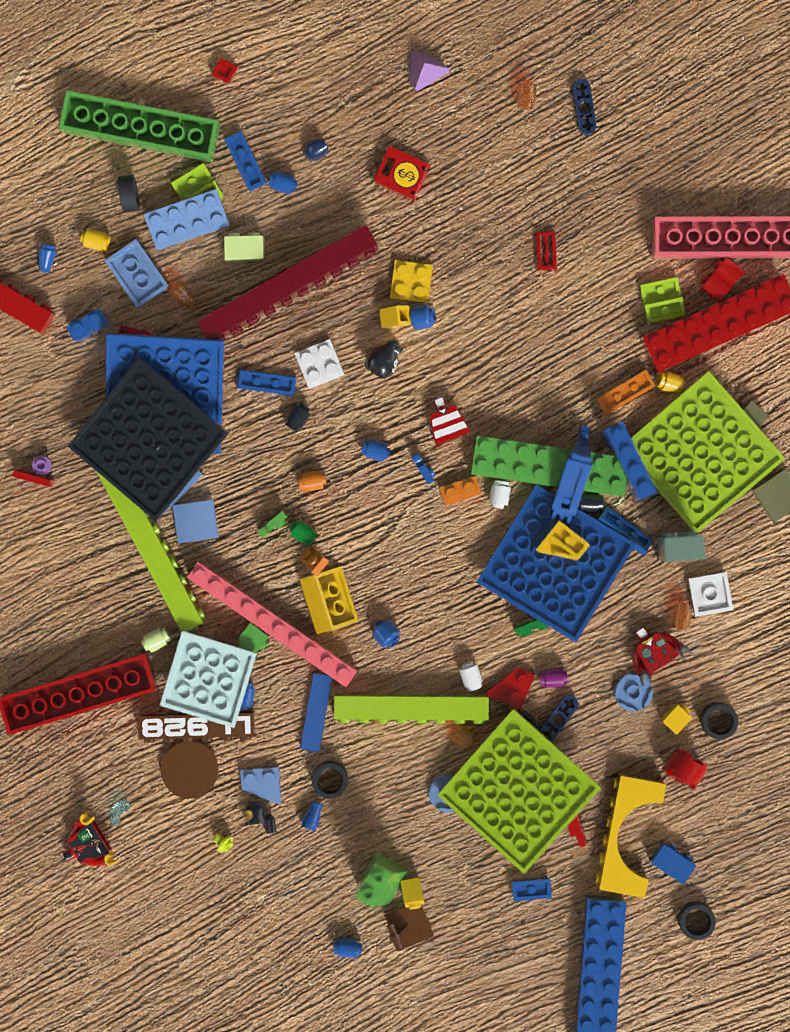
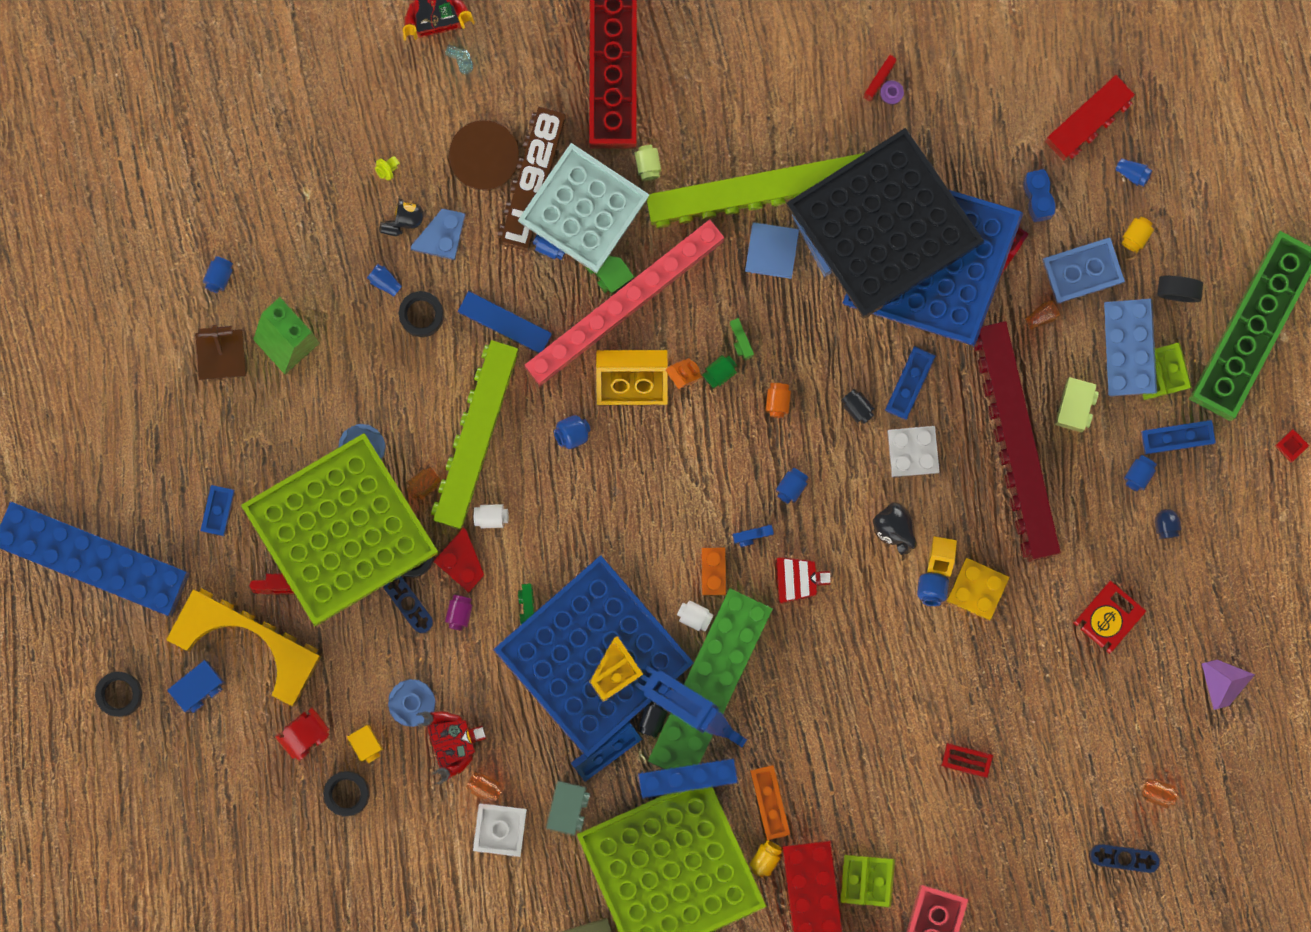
camera: 105 degrees right, 5 degrees down
(412, 893) = (258, 369): yellow brick -> none

